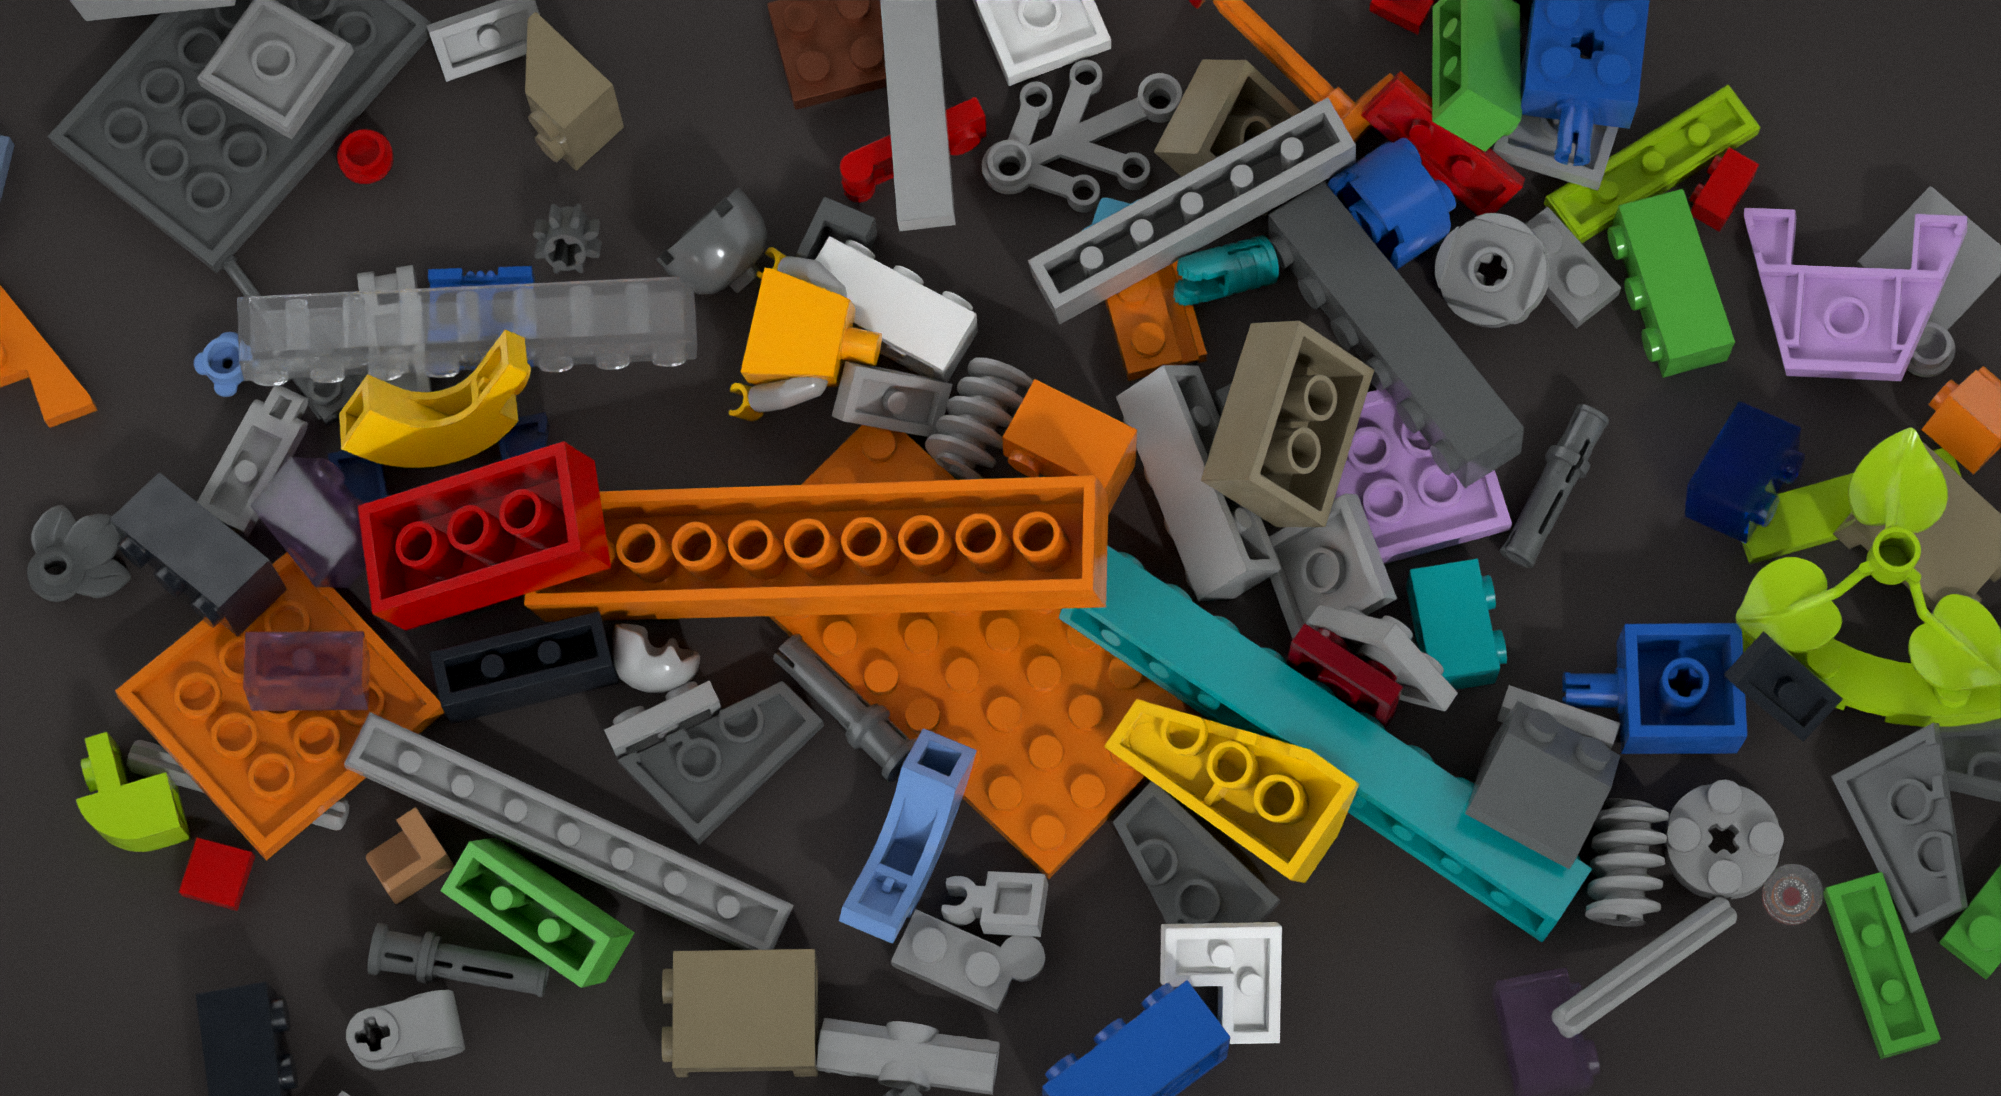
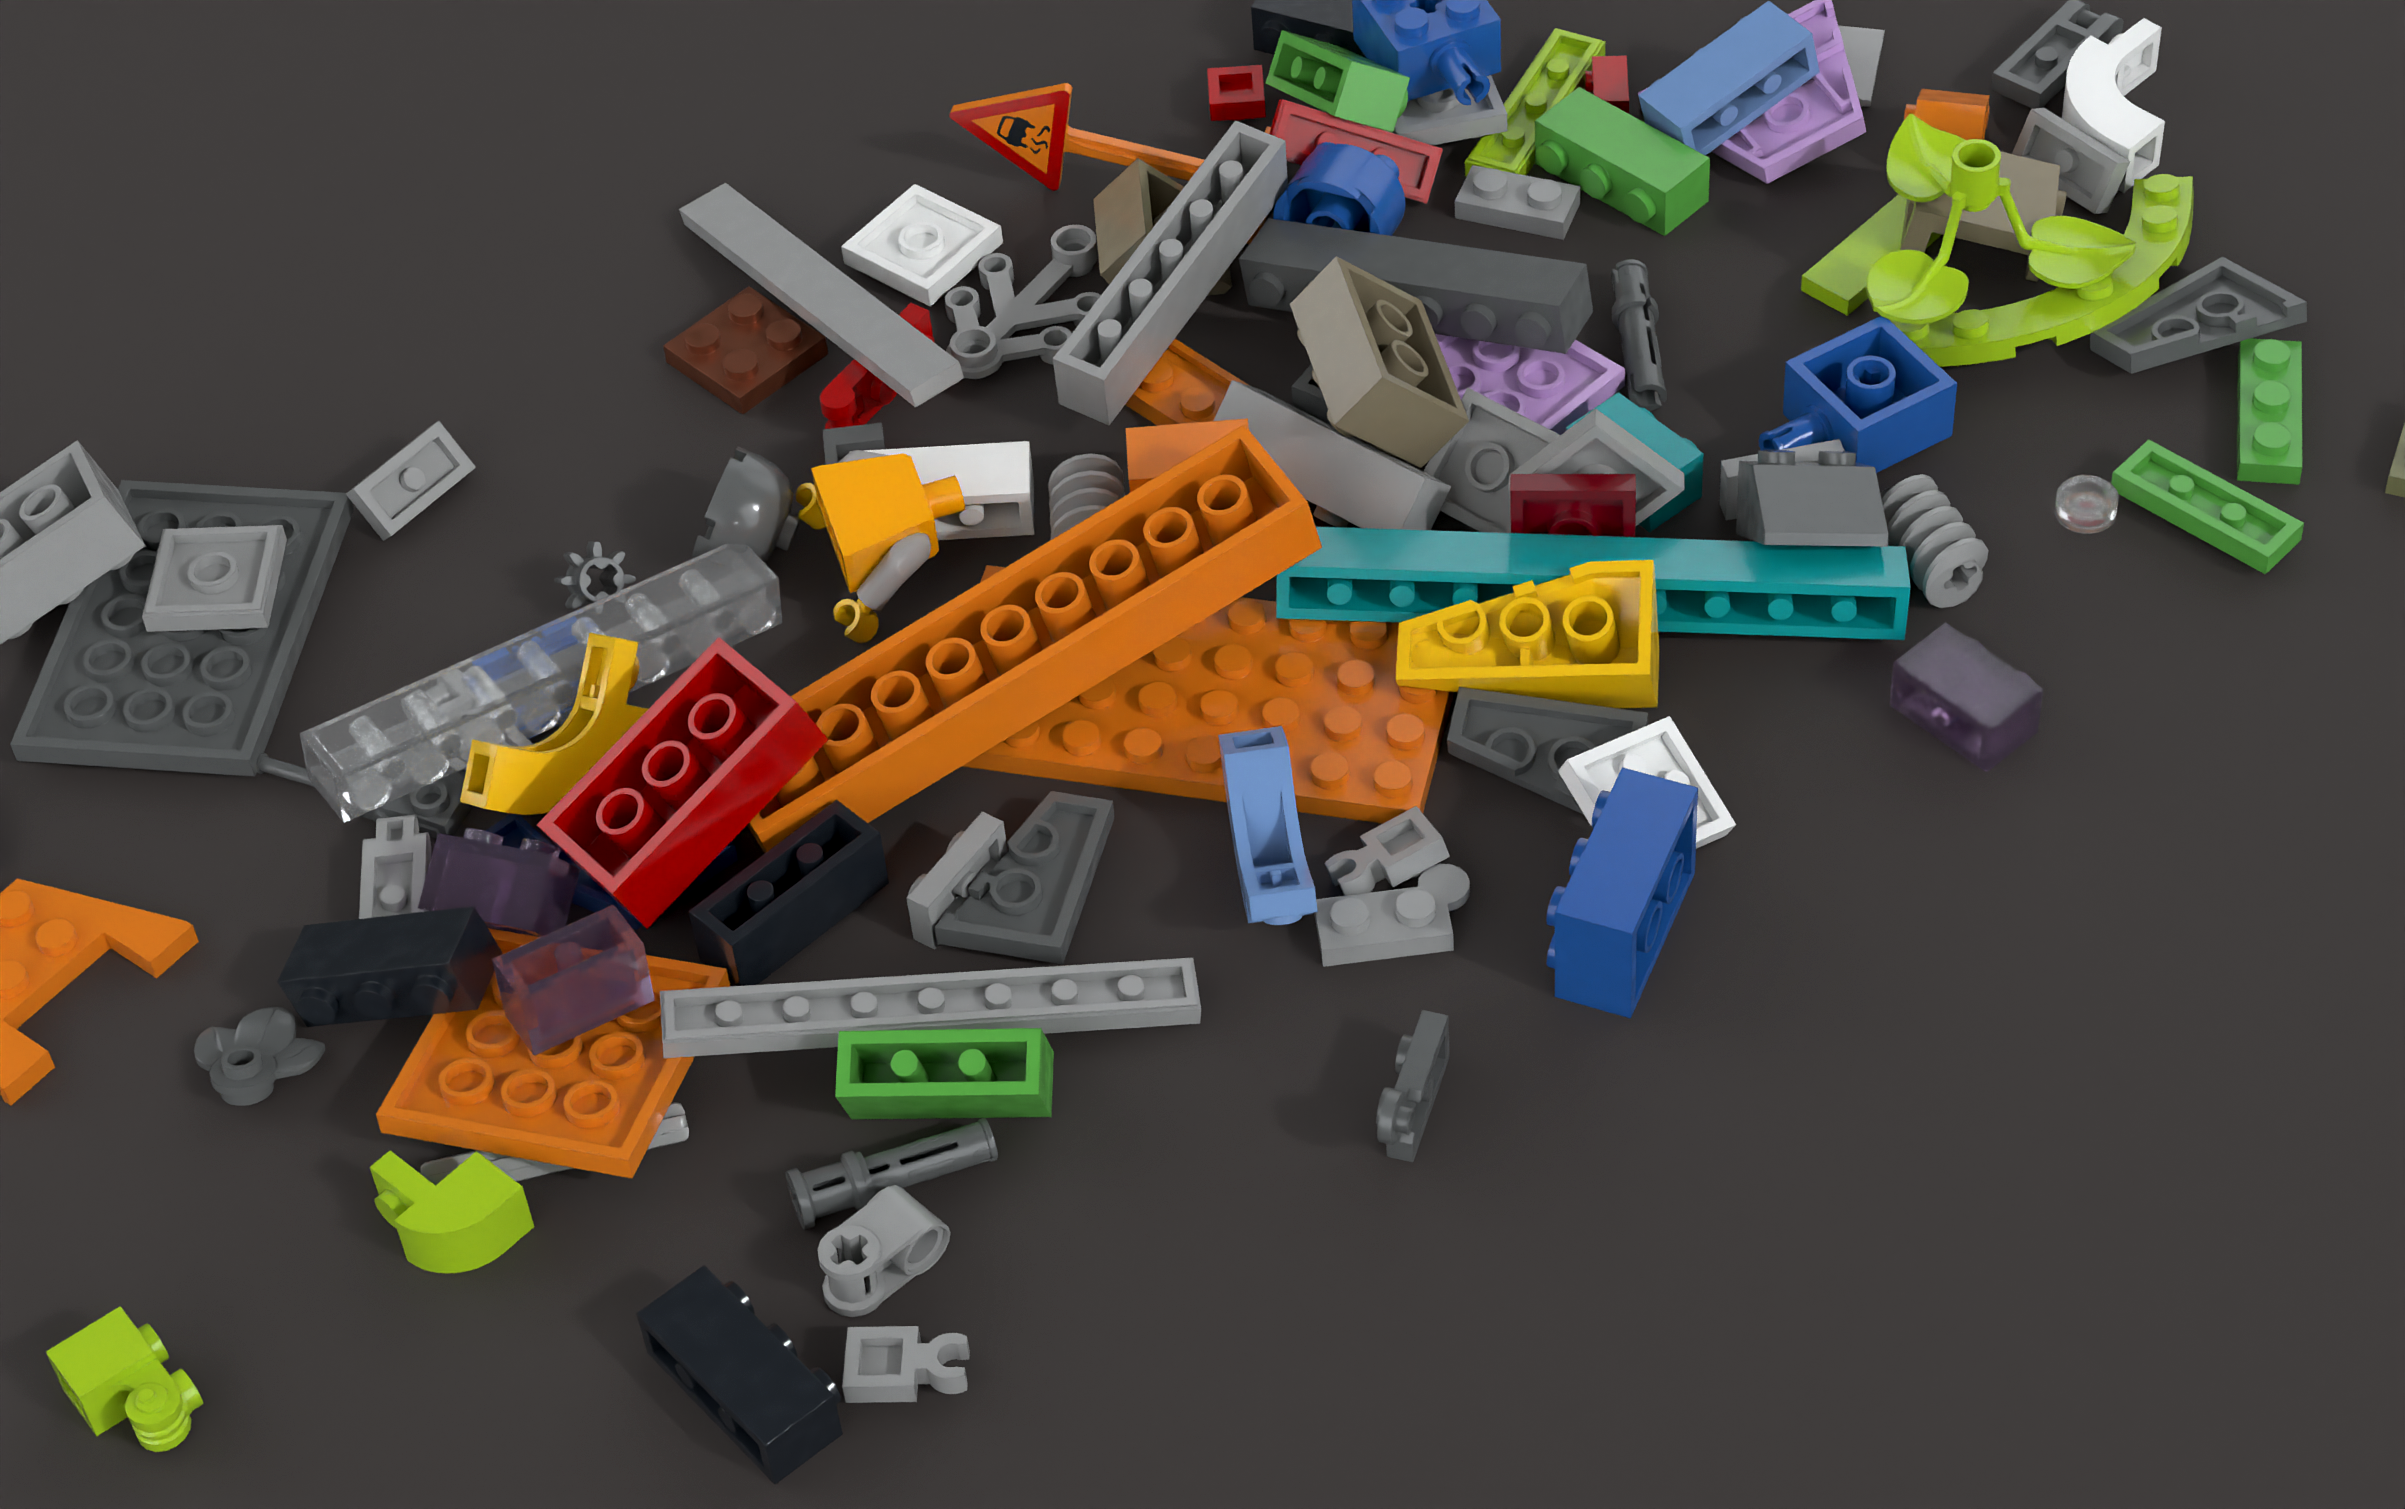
camera: 30 degrees left, 25 degrees down
(211, 364) = (312, 833): medium blue plate -> none
(217, 874) = (583, 1233): red tile -> none
(365, 156) = (347, 621): red plate -> none
(409, 858) = (784, 1110): medium nougat panel -> none
(567, 97) = (523, 469): dark tan slope -> none
(647, 666) = (913, 834): light grey hair -> none
(742, 1011) = (1208, 1053): dark tan panel -> none
(866, 724) = (1155, 788): dark grey pin -> none
(891, 399) = (991, 533): light grey plate -> none
(908, 1055) = (1391, 1005): light grey piece -> none
(1226, 270) = (1233, 321): teal hinge -> none
(1479, 241) = (1469, 186): light grey plate -> none
(1644, 967) = (2010, 594): light grey axle -> none
(1722, 807) = (2020, 479): light grey plate -> none
(1744, 472) = (1794, 239): clear blue brick -> none
(1783, 686) = (1957, 335): black plate -> none
(1809, 266) = (1732, 80): none -> medium blue brick
(1909, 825) = (2134, 395): dark grey wing -> none
(1933, 352) = (1876, 107): light grey plate -> none

